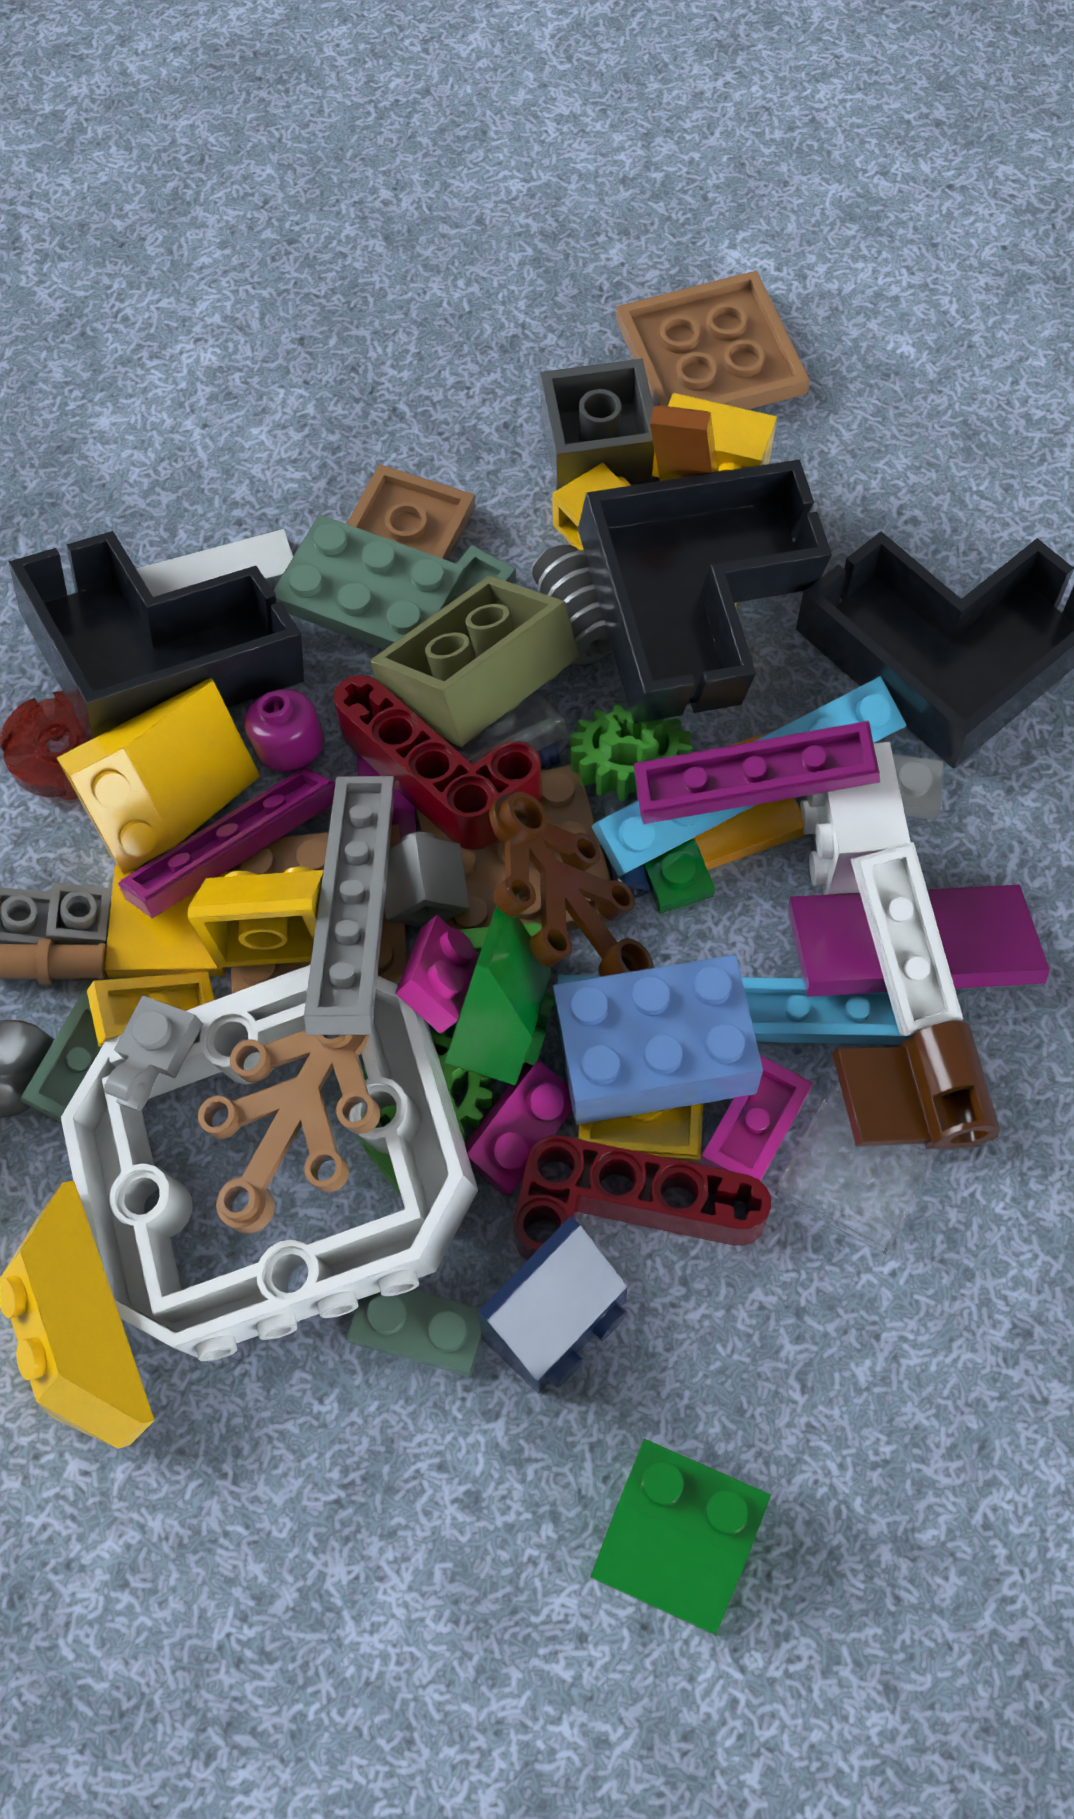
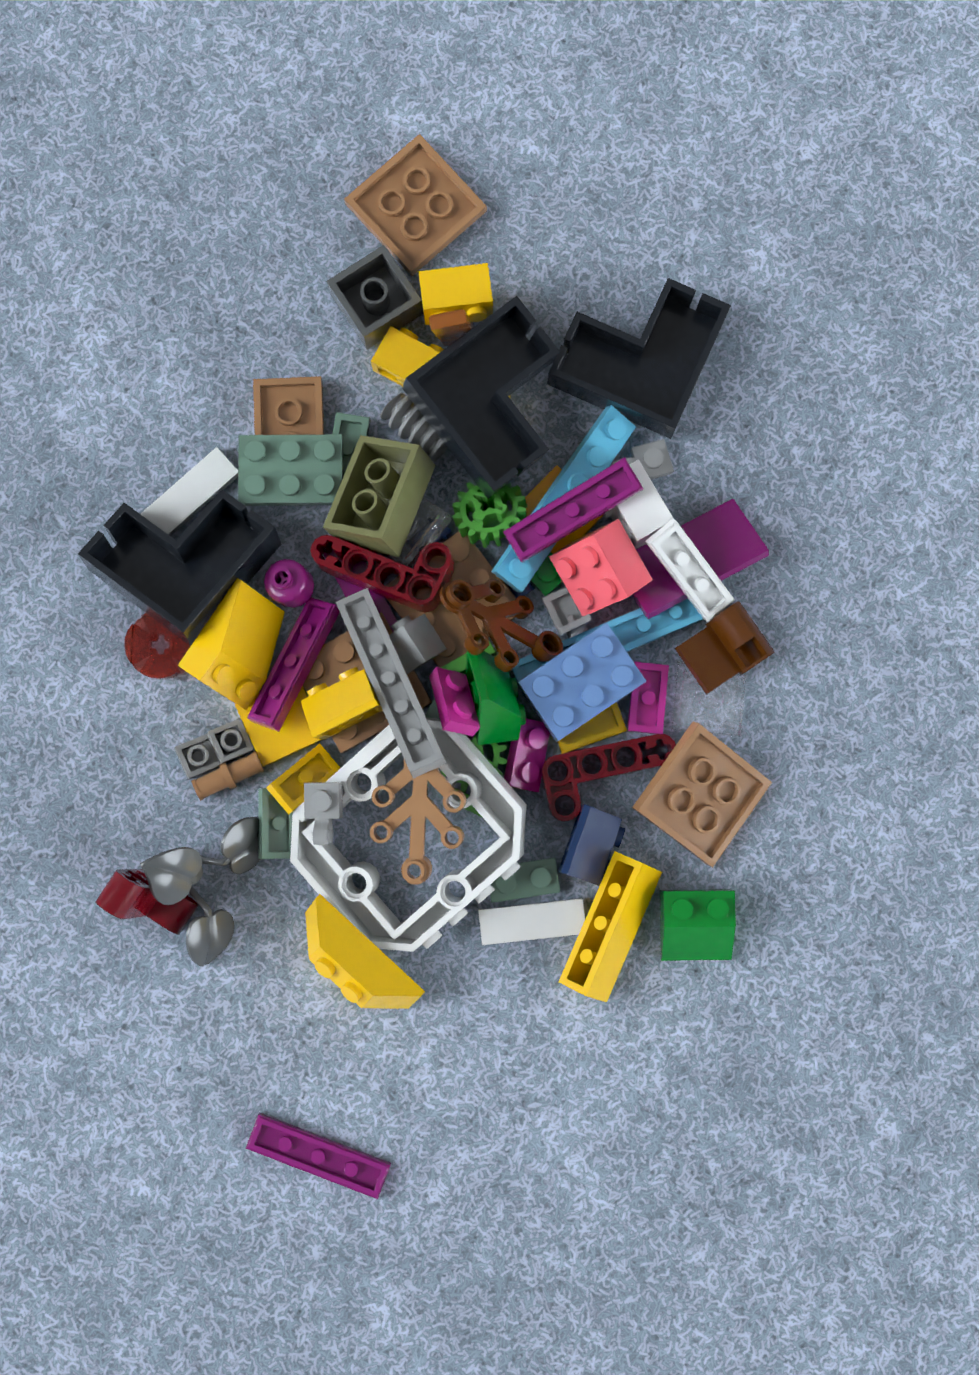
camera: 25 degrees left, 20 degrees up
(400, 1403) = (531, 921): none -> white tile
(524, 1465) = (610, 927): none -> yellow brick
(683, 931) = (565, 613): none -> light grey bracket
(764, 881) = (601, 568): none -> coral brick
(782, 1309) = (702, 794): none -> medium nougat plate

